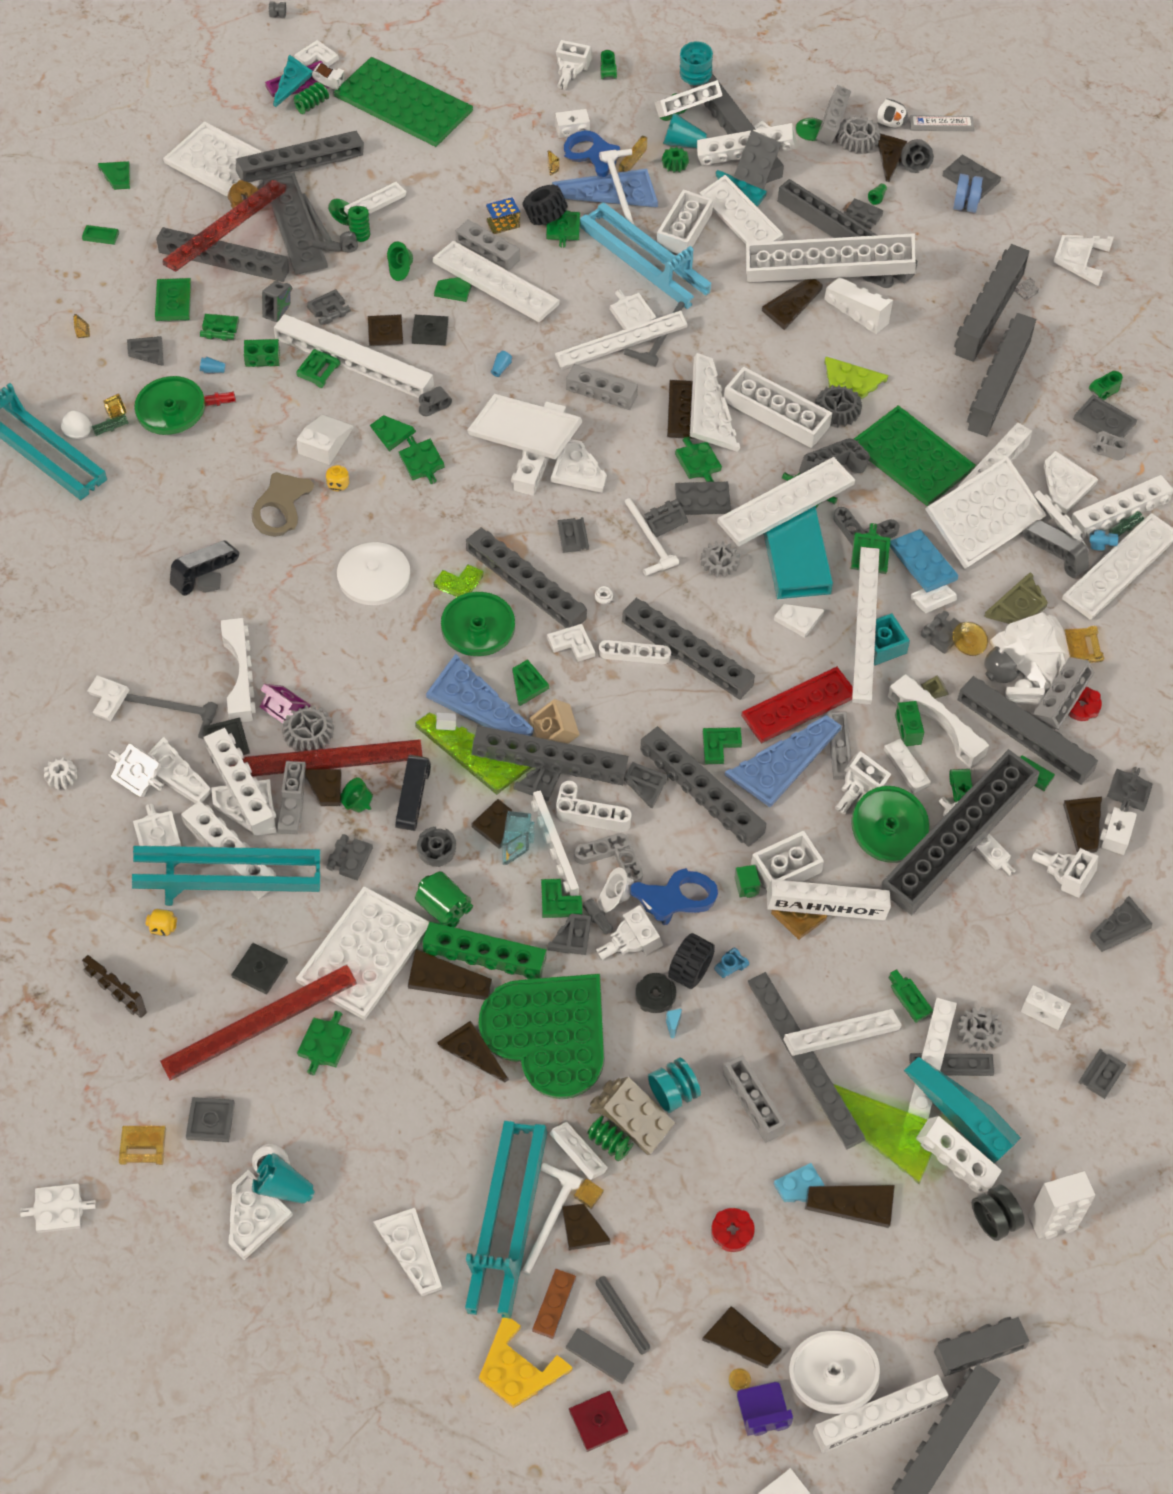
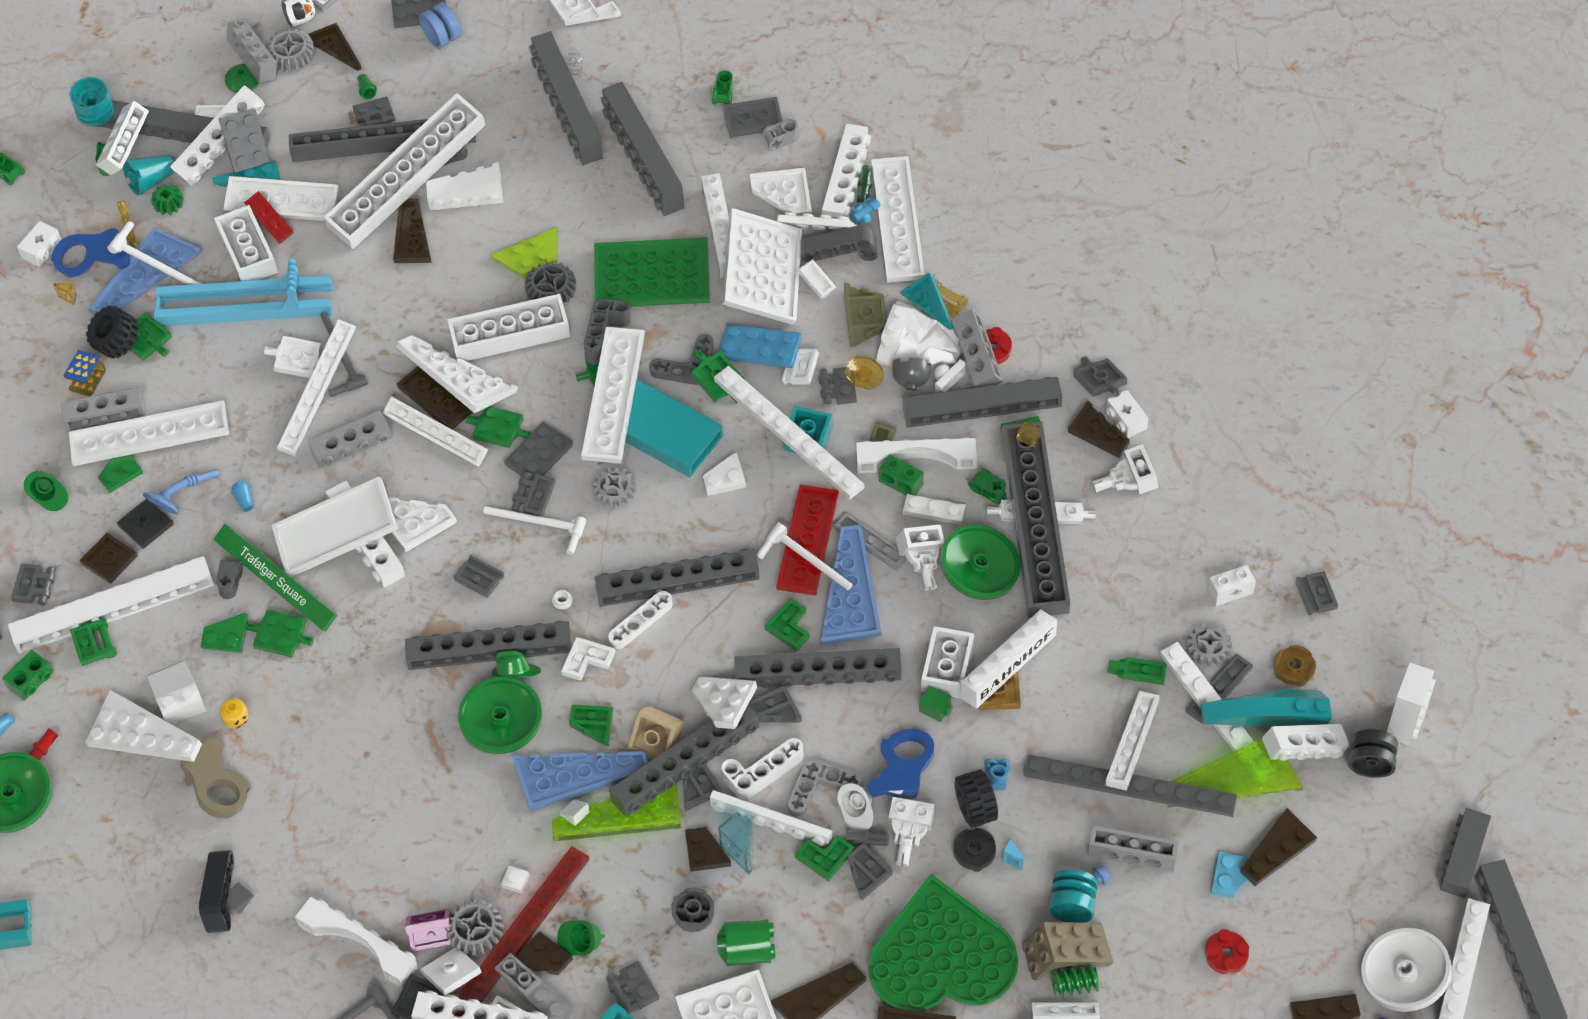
camera: 45 degrees left, 0 degrees up
(262, 738) = (450, 971): none -> white plate
(275, 438) = (132, 729): none -> white wing
(367, 727) = (515, 879): none -> white plate
(373, 573) = (361, 759): white dish -> none
(412, 791) = (620, 889): black beam -> none
(452, 322) = (163, 499): none -> medium blue dish
(459, 426) = (275, 577): none -> green tile
(459, 585) = (441, 703): clear neon green plate -> none
(478, 942) = (825, 937): green brick -> none
(523, 603) = (514, 664): none -> green piece
(617, 744) = (723, 699): none -> white plate
(656, 428) = (435, 431): none -> white plate
(714, 1094) = (1101, 874): none -> medium blue plate
(719, 219) = (269, 217): none -> red tile
(781, 683) = (779, 534): none -> white bar
(917, 155) = (360, 28): dark grey cylinder -> none
(1015, 554) = (817, 279): none -> white tile
(1018, 770) = (1029, 434): none -> clear yellow slope
(1018, 1113) = (1292, 676): none -> pearl gold plate
(1072, 630) = (927, 297): none -> teal wing
(1122, 925) = (1207, 479): dark grey wing -> none

